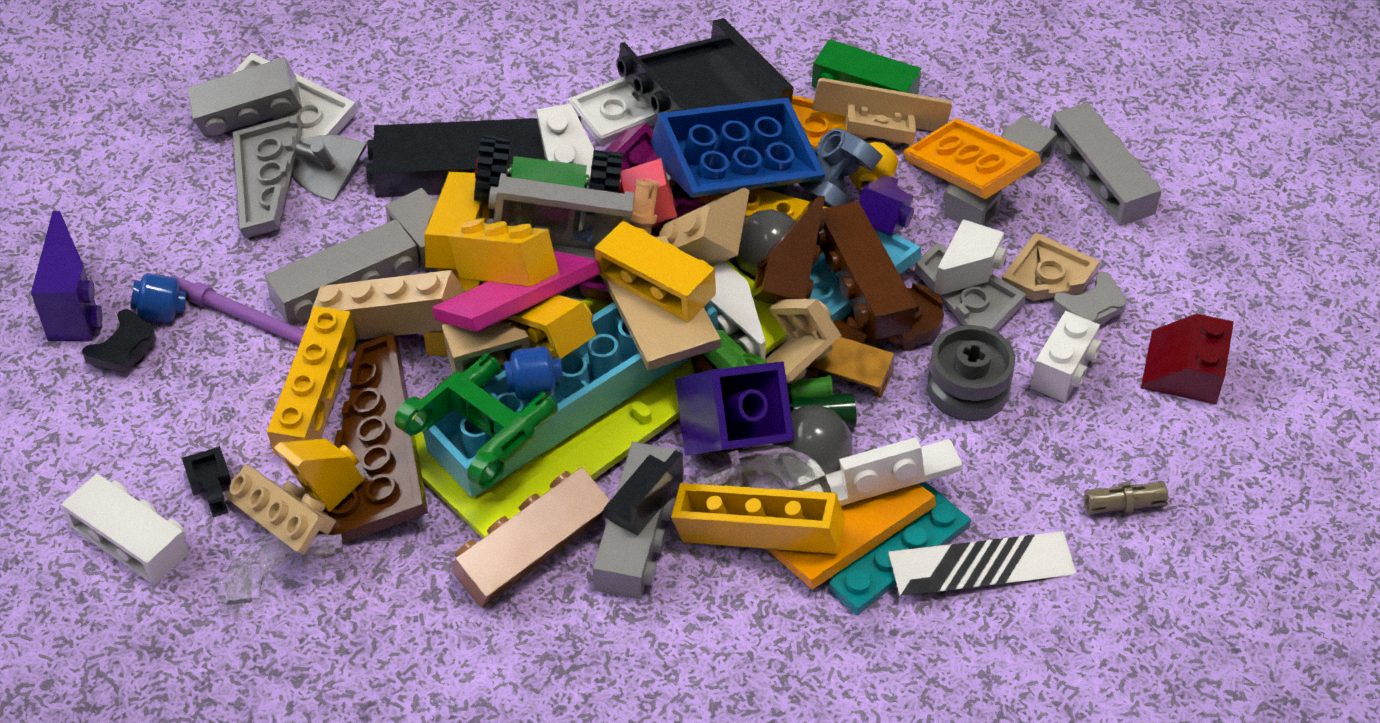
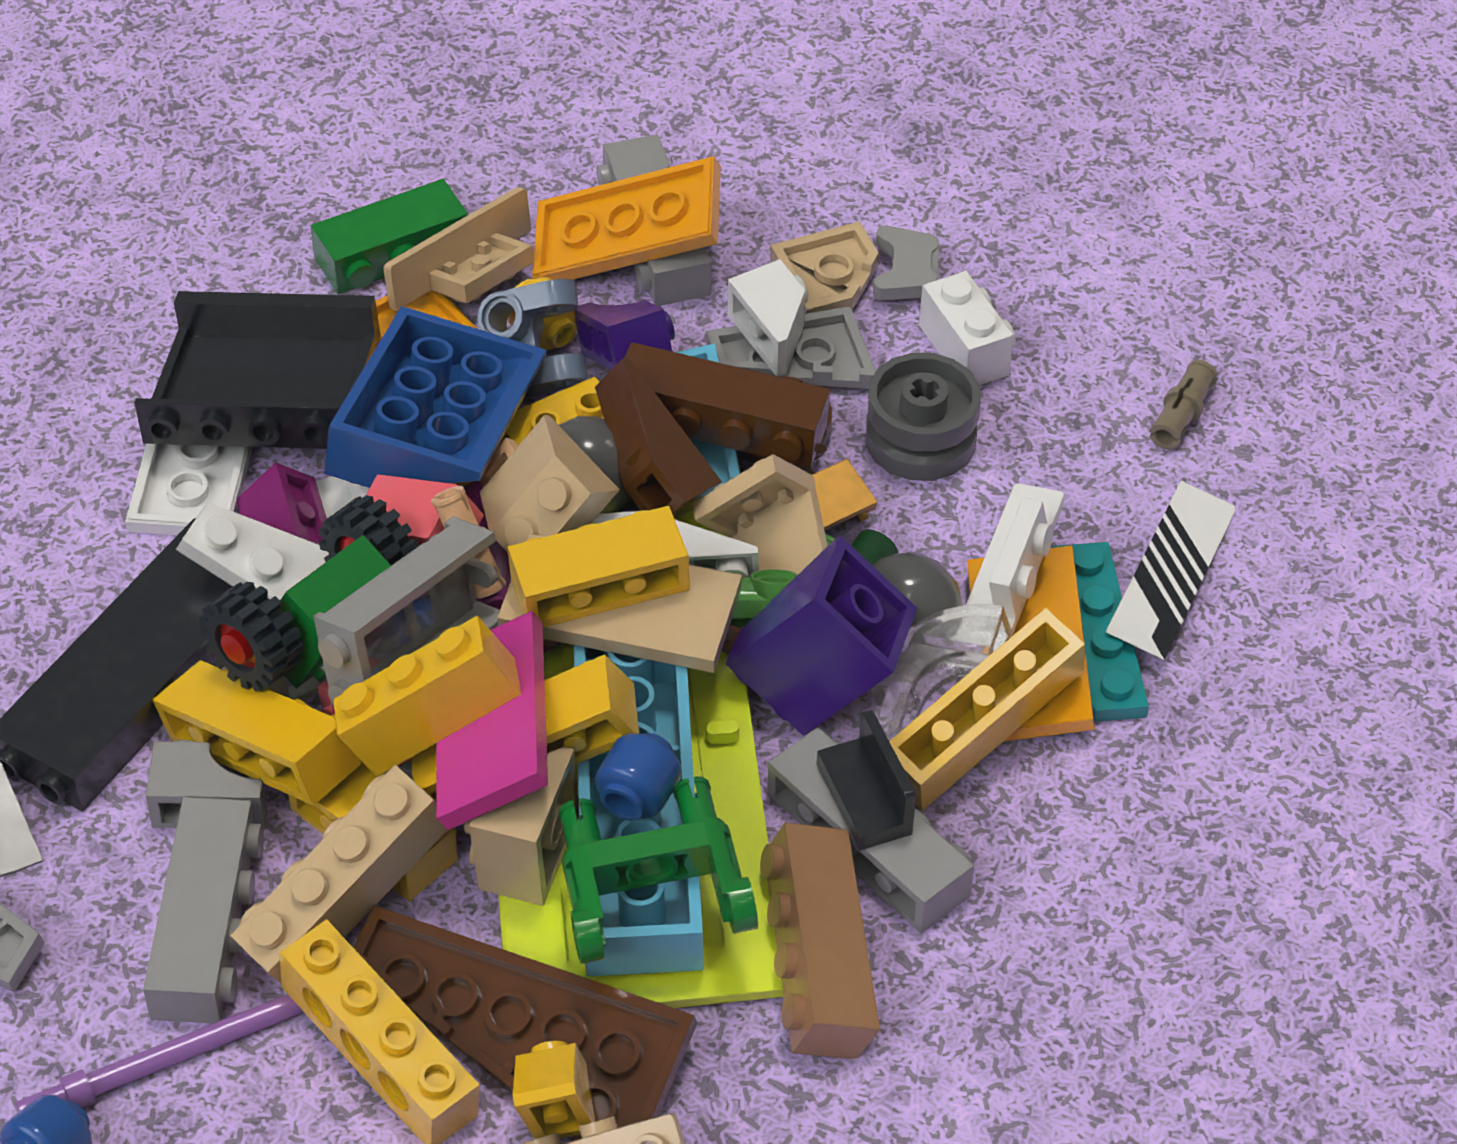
camera: 55 degrees left, 0 degrees up
(1105, 164) = (733, 130): light grey brick -> none
(1189, 358) = (1051, 239): dark red slope -> none

